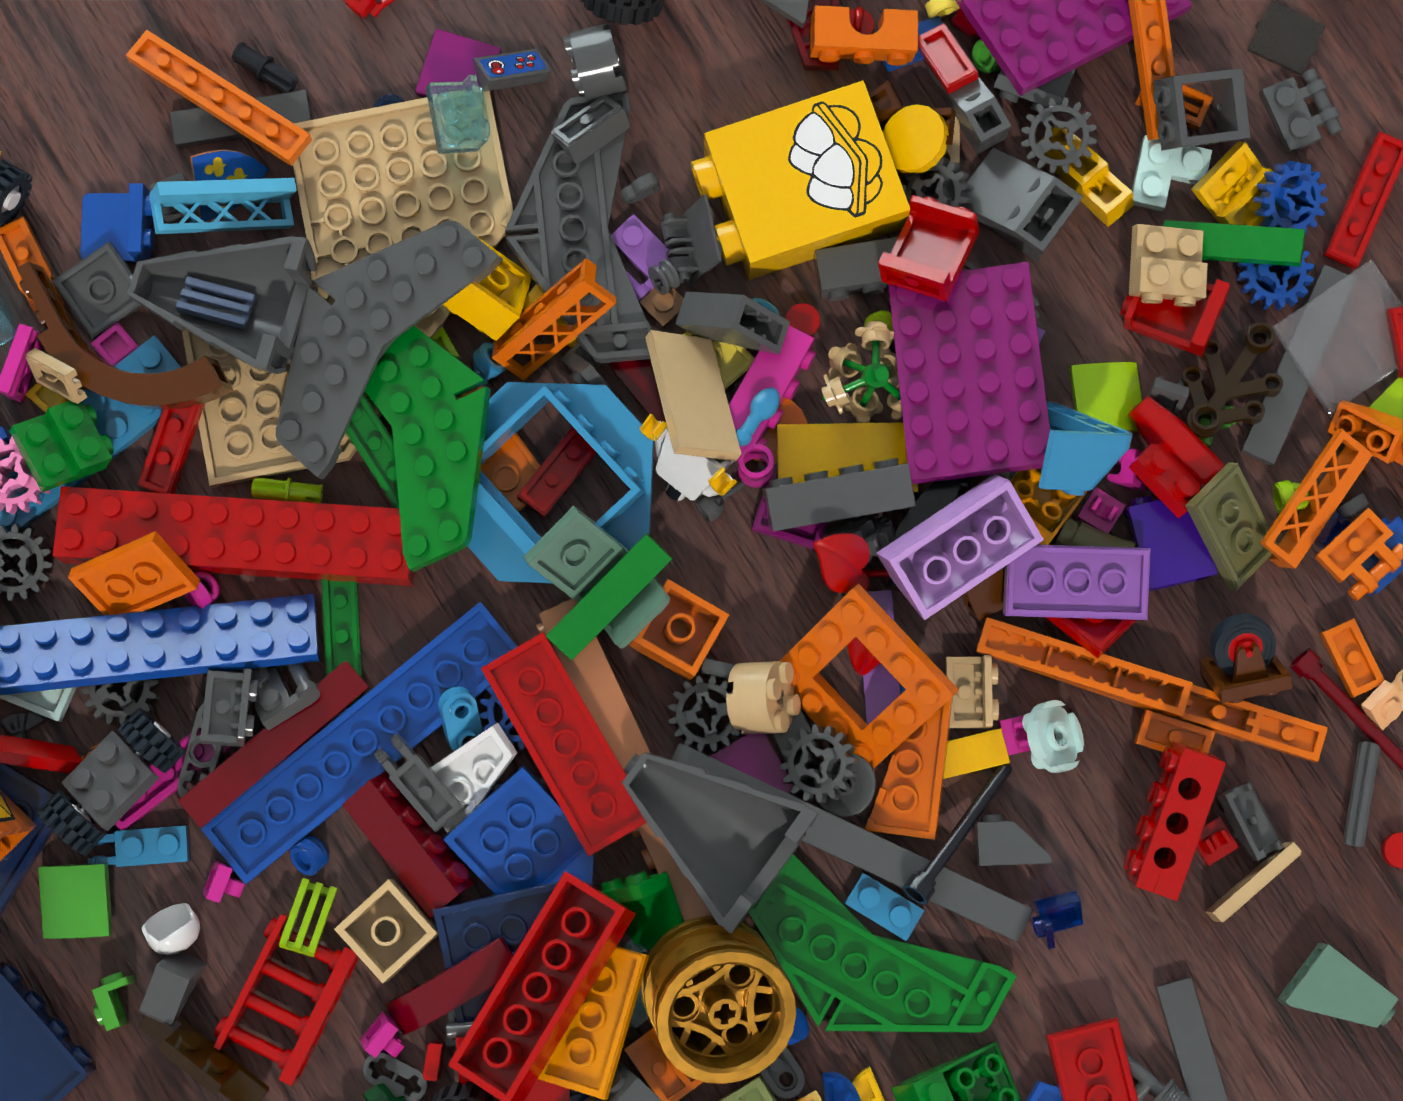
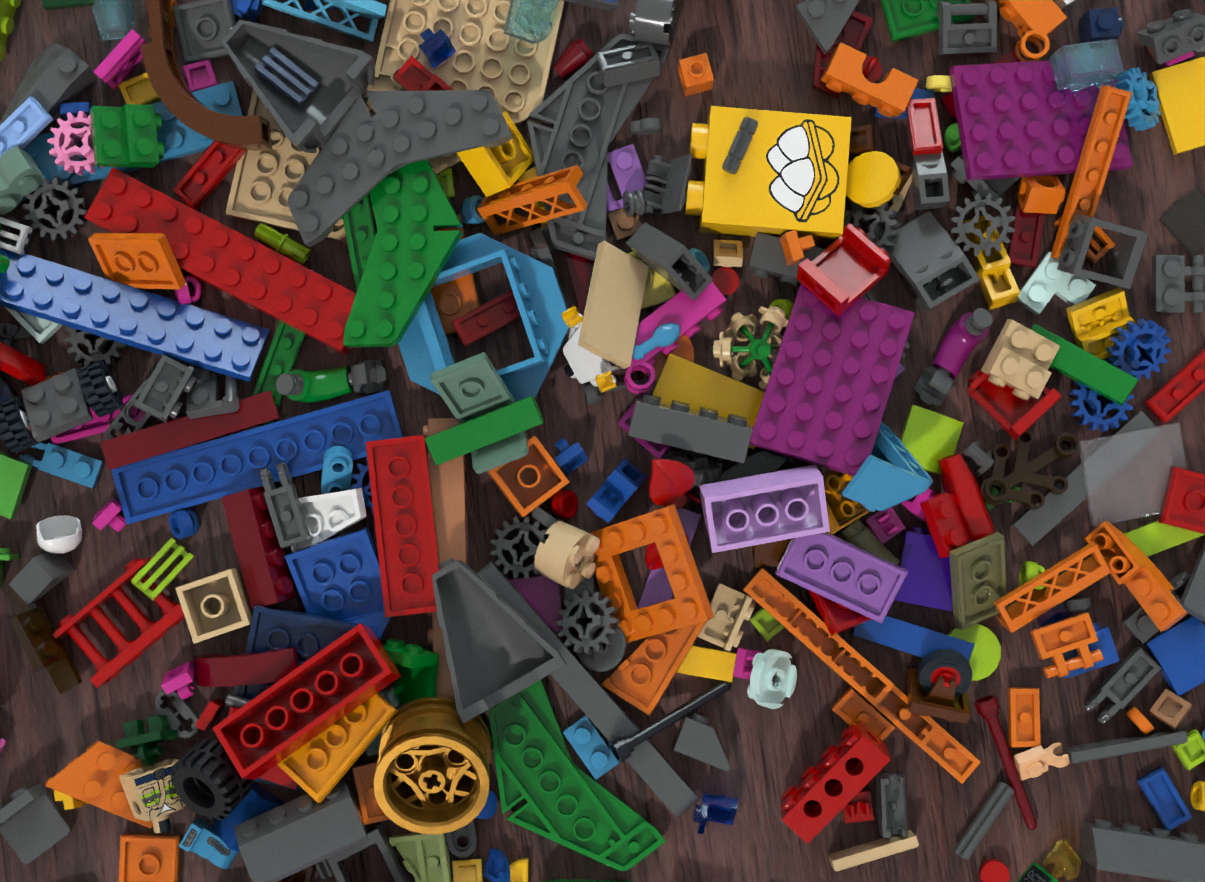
camera: 25 degrees right, 5 degrees up
(55, 375) = (142, 80): tan tile -> none
(361, 241) = (416, 77): none -> red slope
(369, 199) = (436, 47): none -> clear blue tile
(405, 627) = (326, 384): none -> piece
(526, 148) = (573, 58): none -> dark red cone
(669, 109) = (695, 74): none -> orange brick
(716, 588) = (570, 456): none -> blue tile
(732, 645) = (564, 504): none -> red tile
(755, 162) = (740, 145): none -> dark grey axle
(785, 602) = (616, 490): none -> blue brick
(792, 288) = (727, 253): none -> tan plate
(864, 247) = (794, 247): none -> orange tile
(1018, 680) = (765, 624): none -> lime tile
(1090, 282) = (953, 351): none -> piece
(1106, 77) = (1040, 194): none -> orange brick
(1113, 130) = (1026, 239): none -> dark red plate
(1183, 624) = (910, 637): none -> blue tile
(1267, 600) = (985, 652): none -> lime tile

